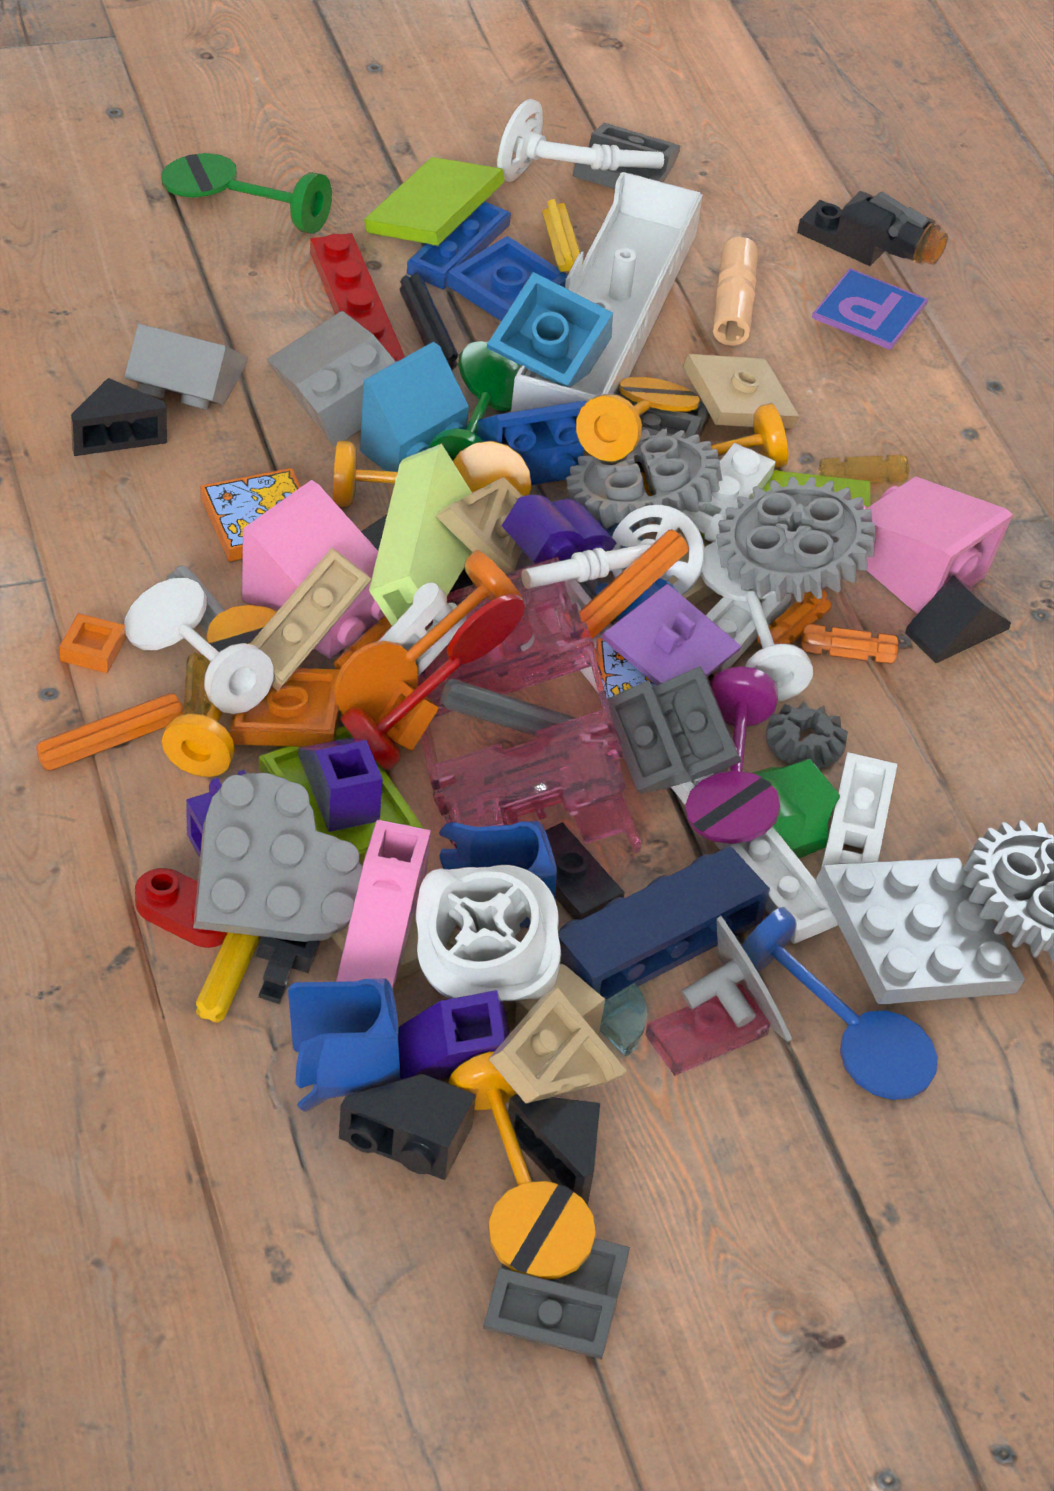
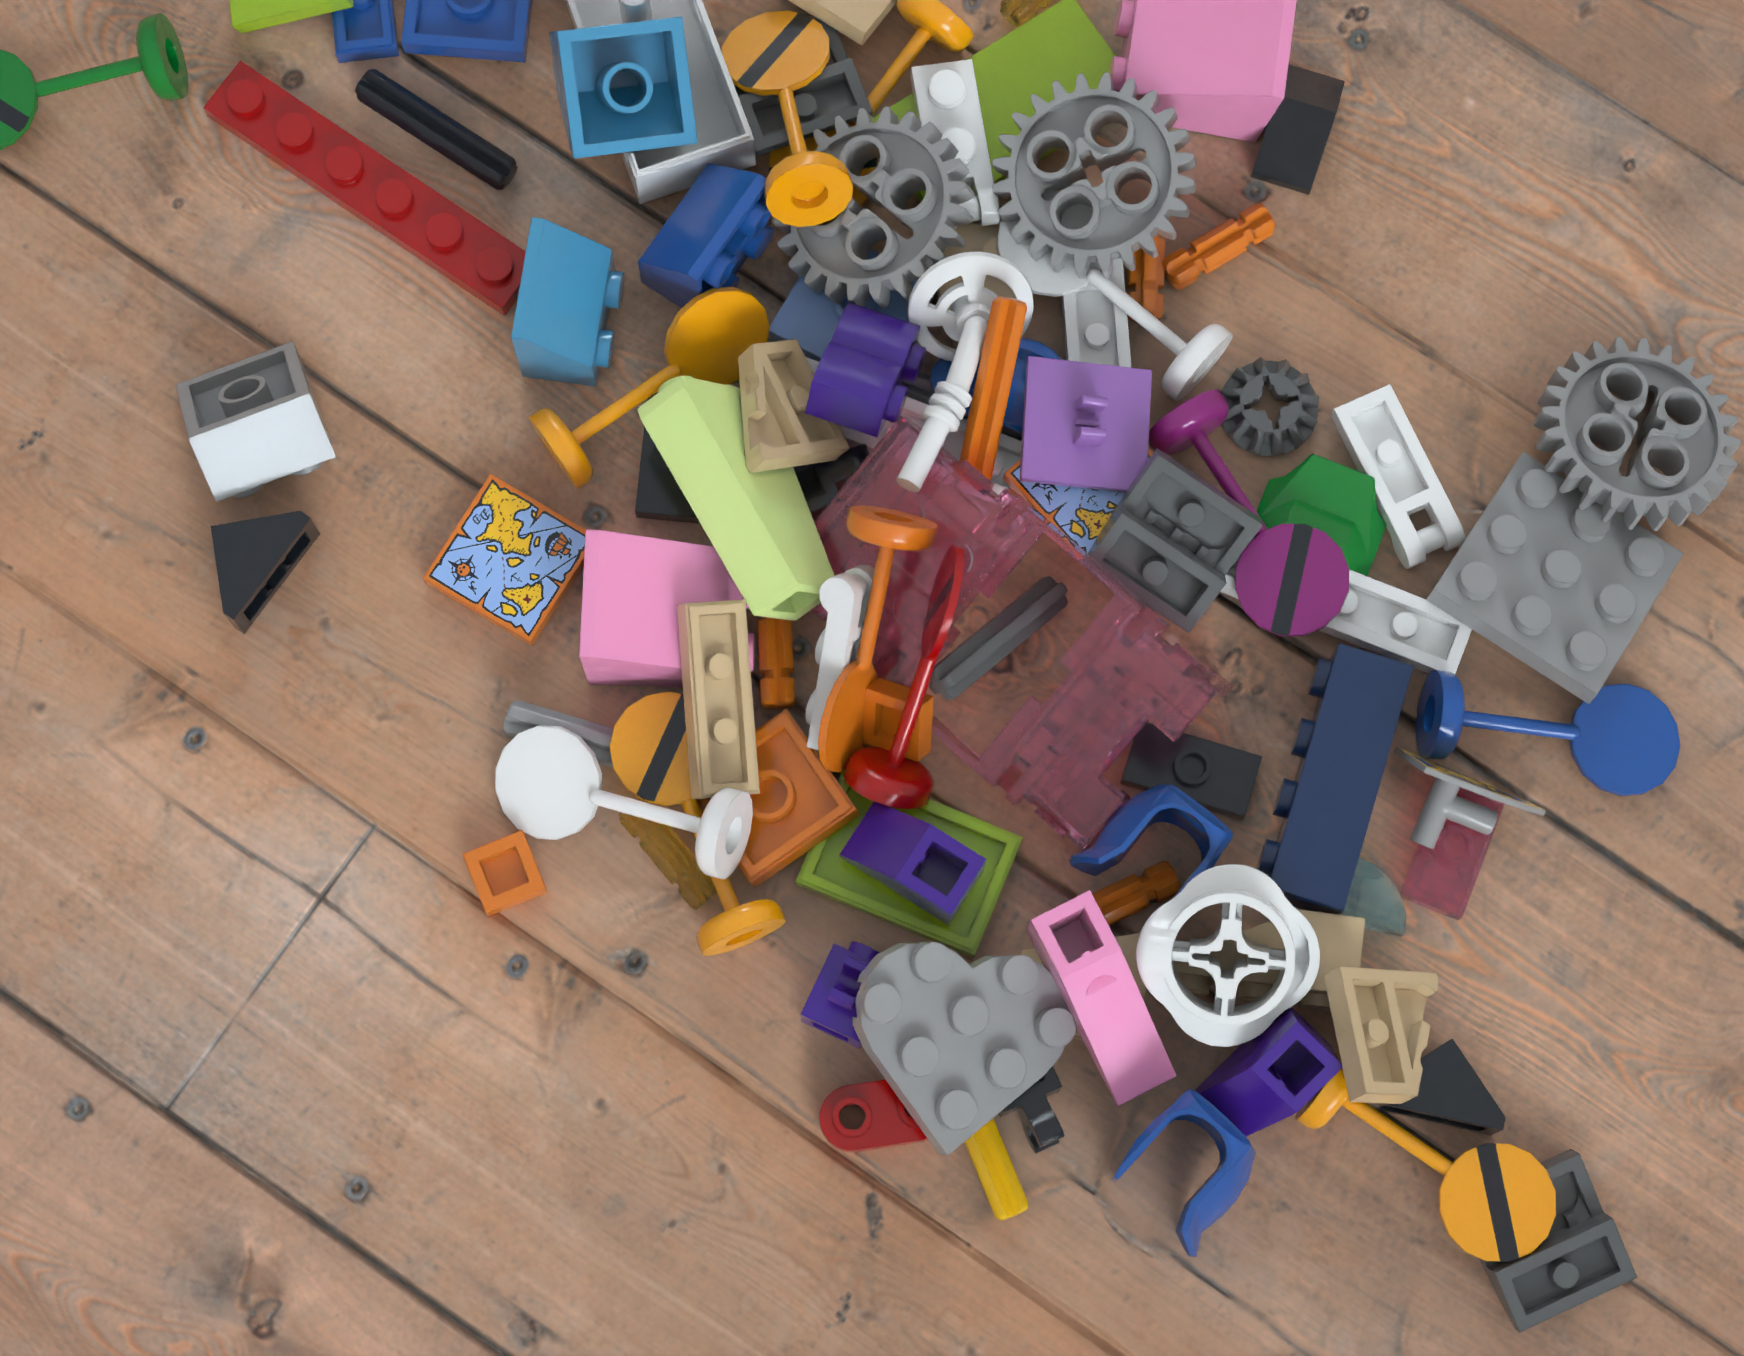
camera: 35 degrees left, 30 degrees up
(108, 732) = (627, 970): orange axle -> none
(328, 373) = (422, 305): light grey slope -> none
(410, 1122) = (1296, 1181): black slope -> none
(491, 381) = (596, 187): green piece -> none

